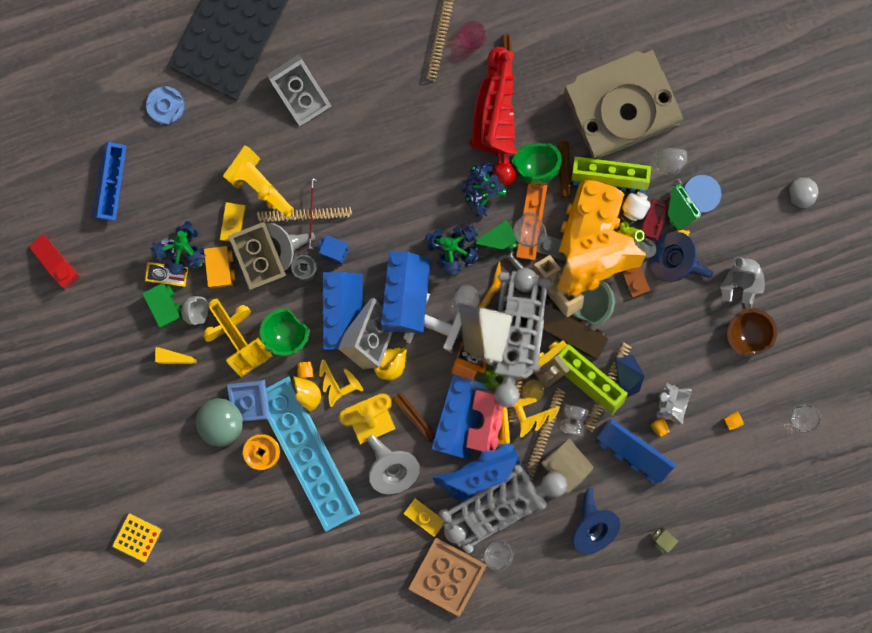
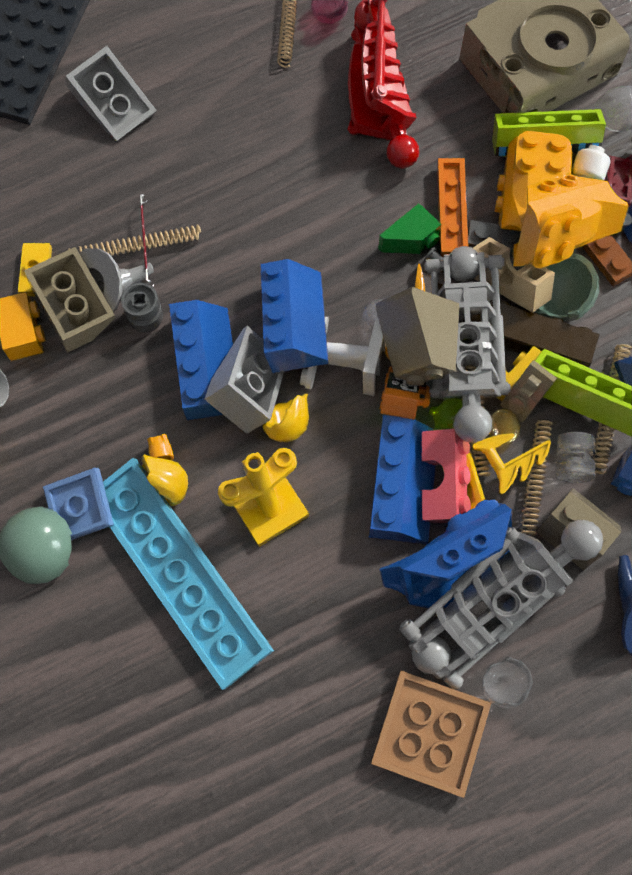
camera: 10 degrees left, 15 degrees down
(244, 170) = (44, 191): yellow piece -> none
(249, 355) = (70, 435): yellow piece -> none
(252, 449) = (92, 572): light orange wheel -> none
(283, 333) = (120, 397): green cylinder -> none
(333, 249) = (181, 273): blue brick -> none
(335, 392) = (209, 474): yellow piece -> none
(391, 470) = (314, 572): light grey piece -> none
(415, 418) = (335, 492): reddish brown axle -> none
(424, 517) = (376, 643): yellow plate -> none
(454, 243) = (352, 241): dark blue plant -> none
(490, 186) = (382, 154): dark blue plant -> none
(529, 230) = (452, 208): clear helmet -> none
(537, 163) = (446, 132): green cylinder -> none
(565, 180) = (482, 141): reddish brown axle -> none

